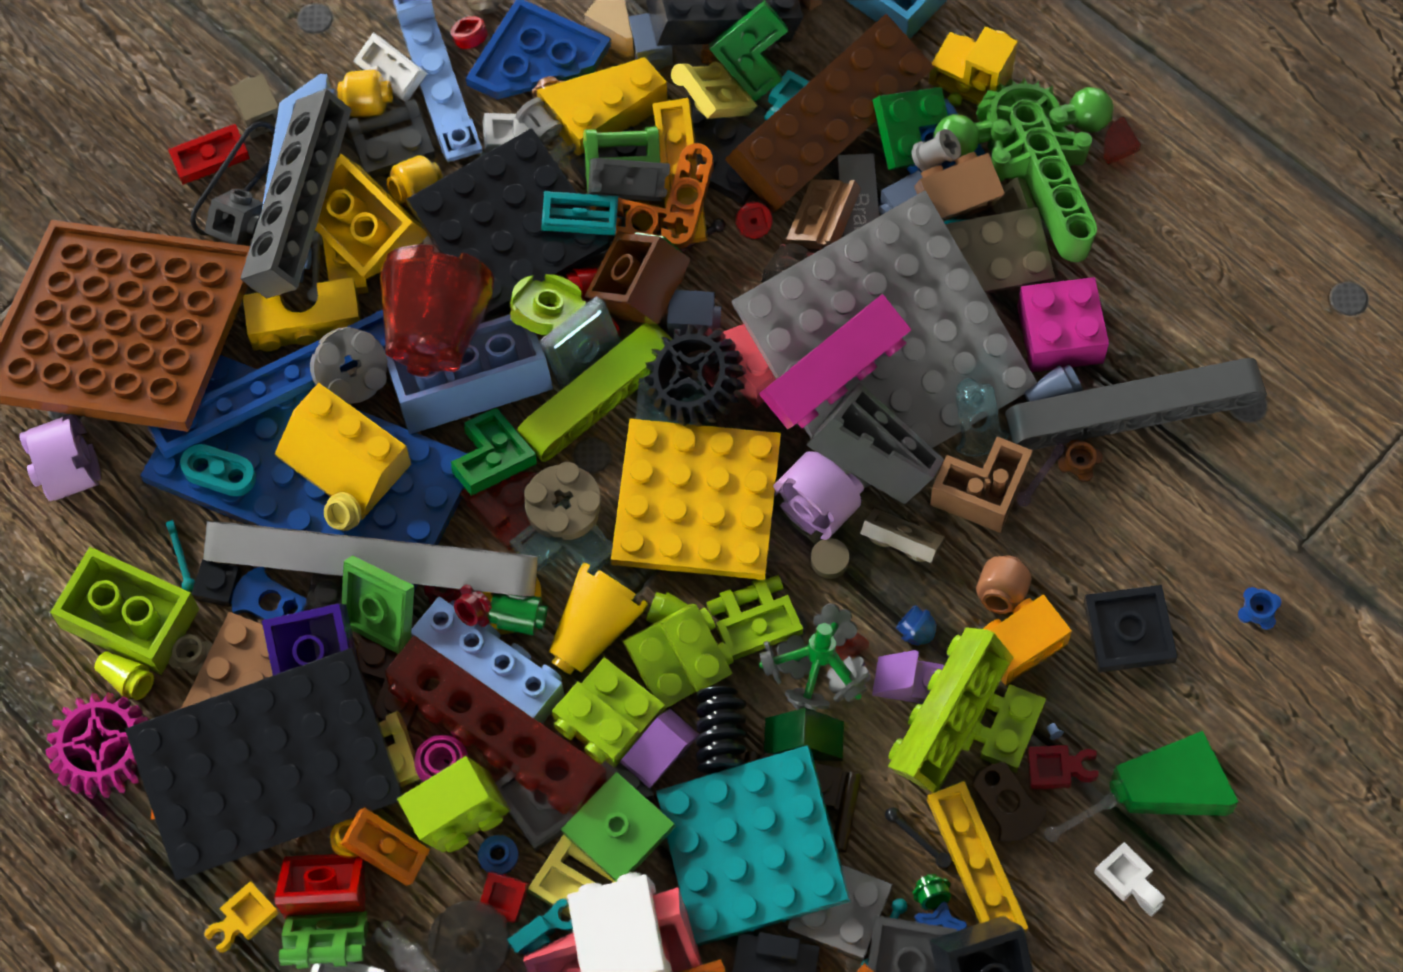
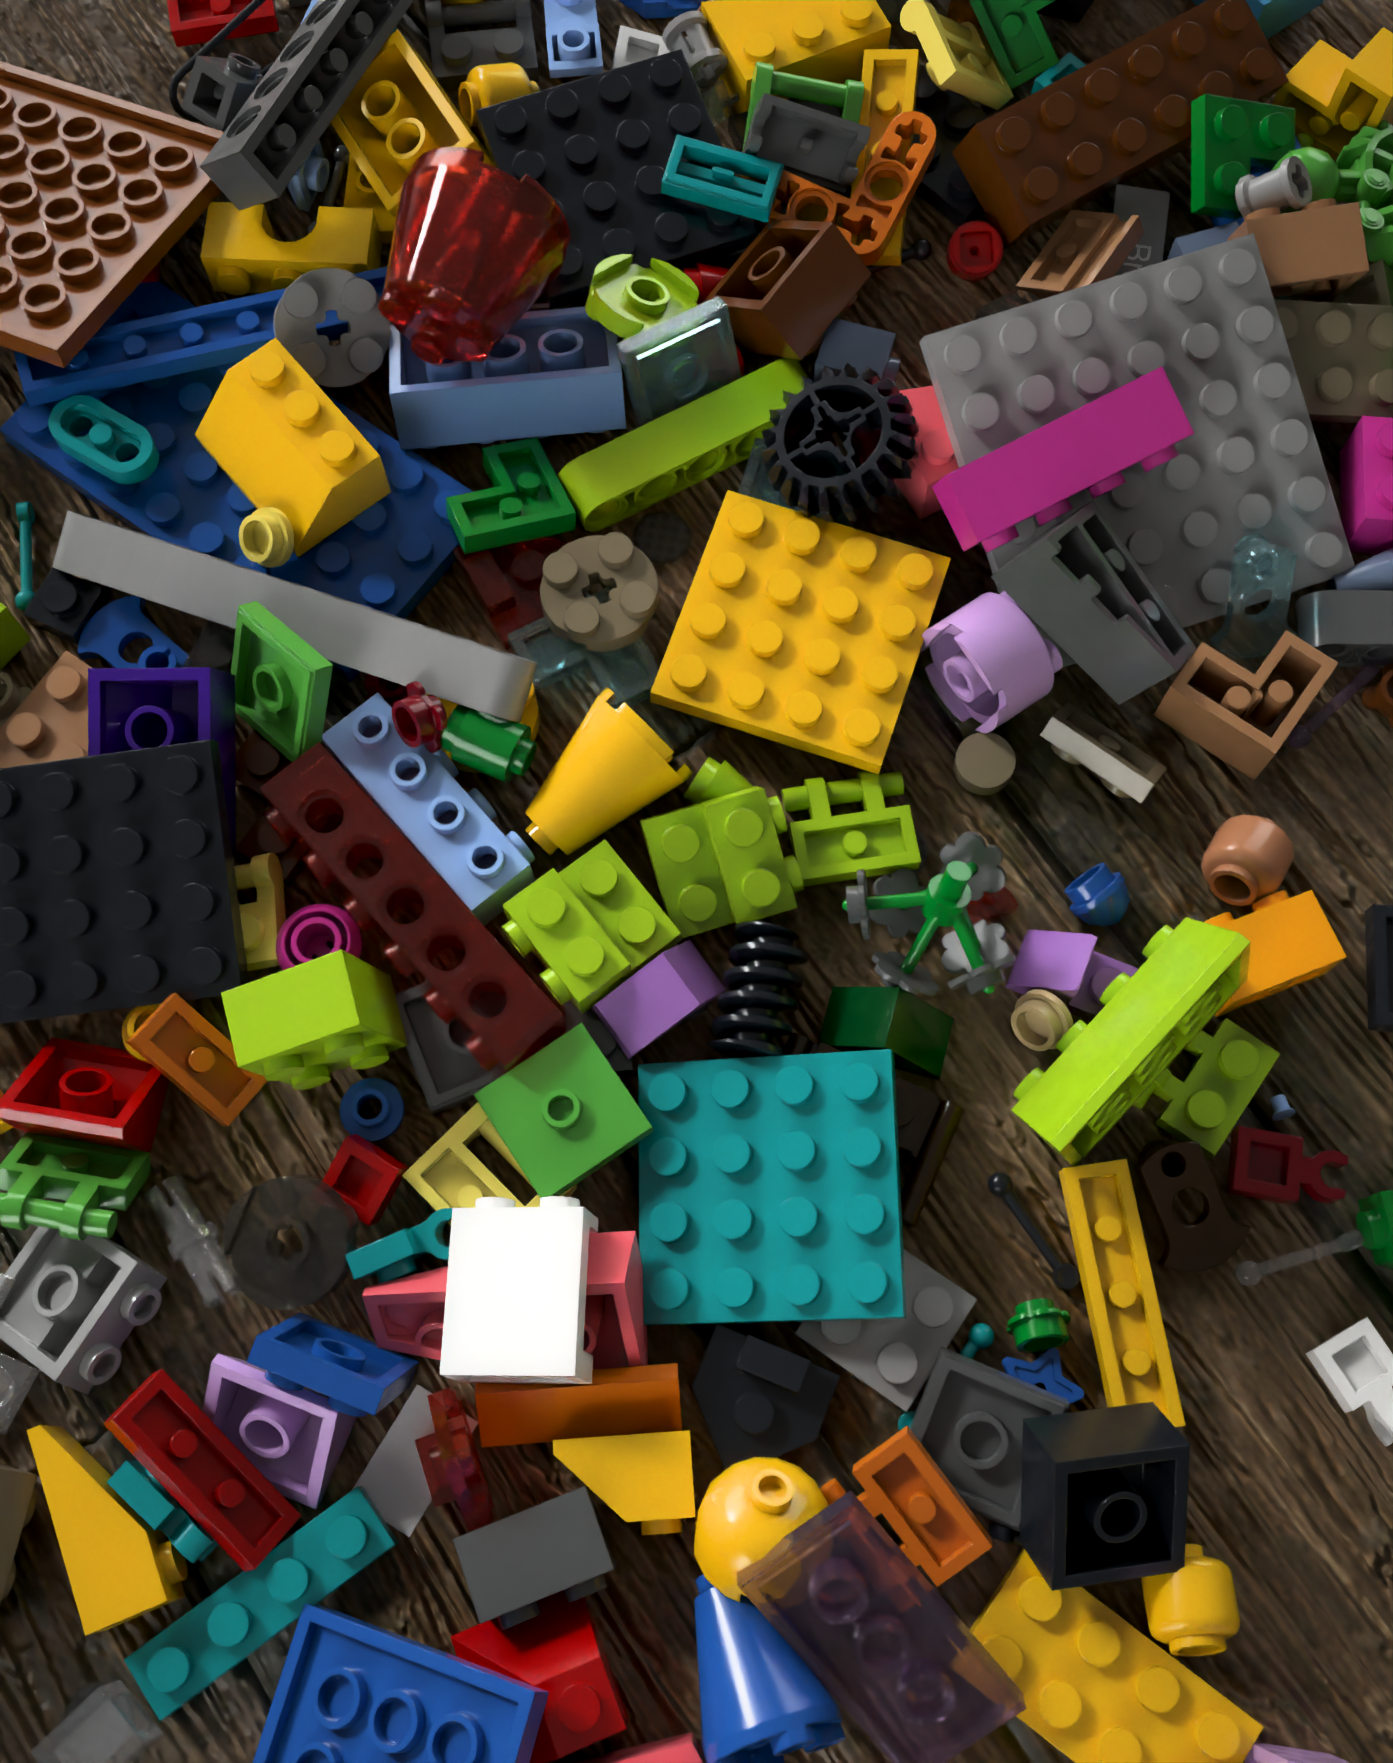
camera: 10 degrees right, 5 degrees up
(895, 709) = (1040, 1020): none -> tan plate

